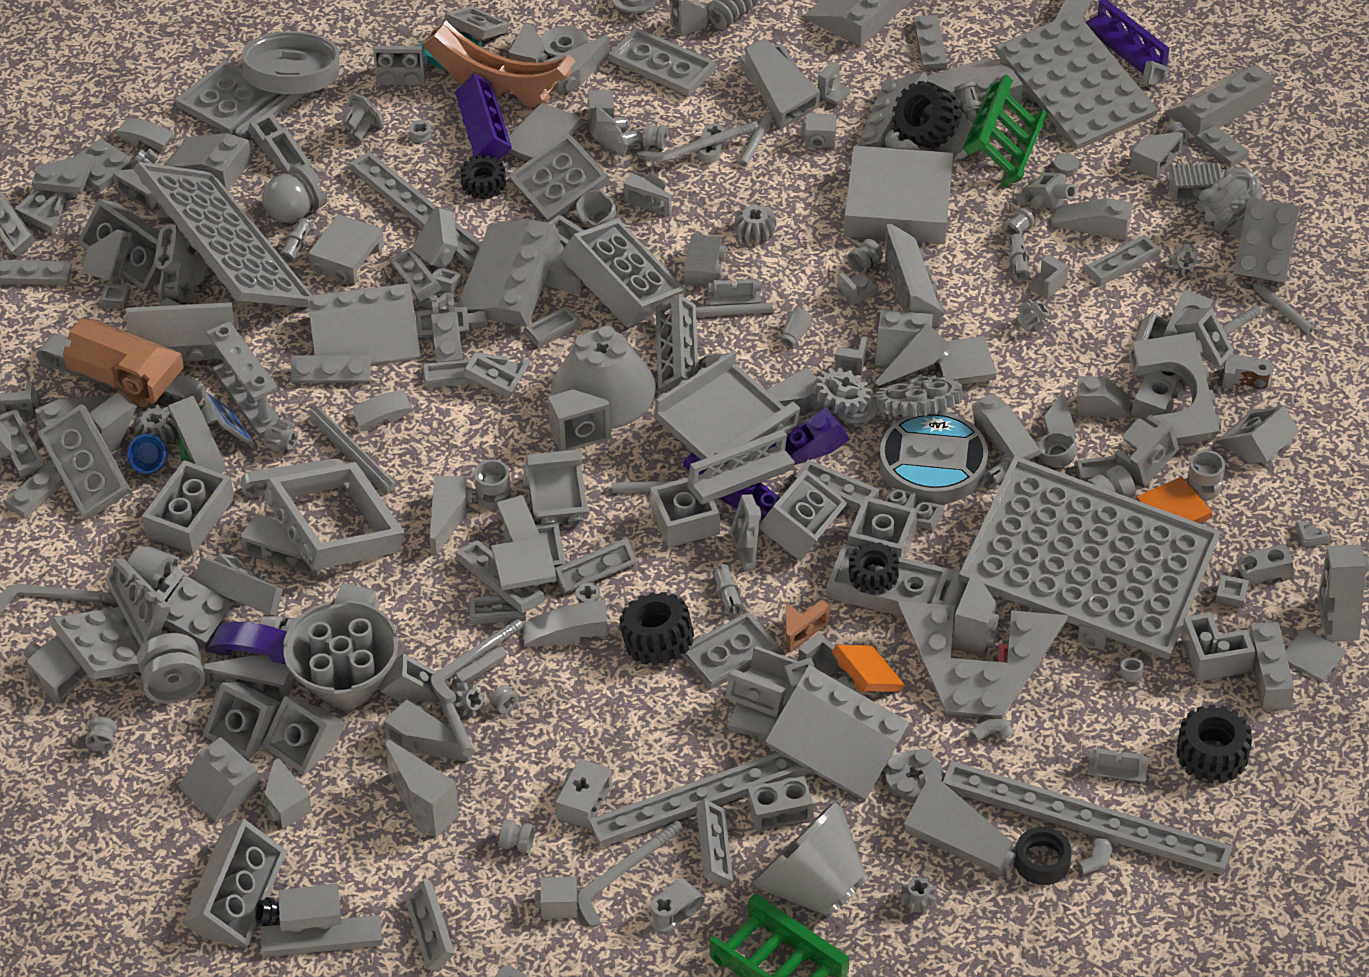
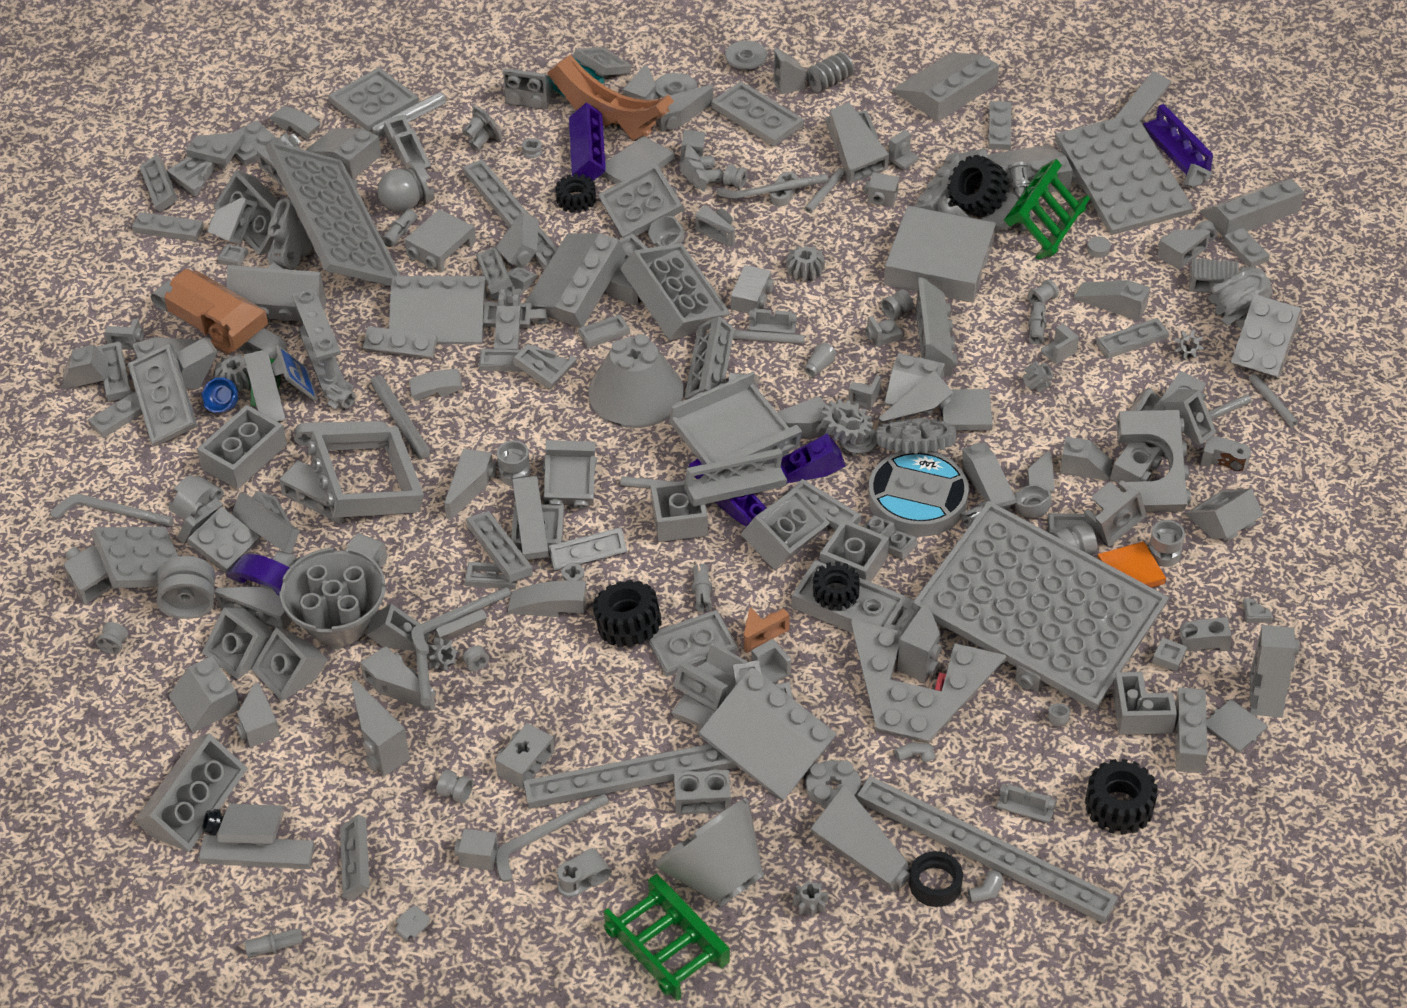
camera: 10 degrees right, 0 degrees up
(138, 601) = (172, 523): light grey wing -> none
(290, 62) = (433, 75): light grey brick -> none
(523, 563) = (520, 537): light grey slope -> none
(578, 419) = (603, 415): light grey slope -> none
(714, 842) = (633, 820): light grey plate -> none
(745, 531) = (729, 536): light grey wing -> none
(867, 668) = (811, 677): orange tile -> none
(1047, 191) = (1075, 267): light grey piece -> none

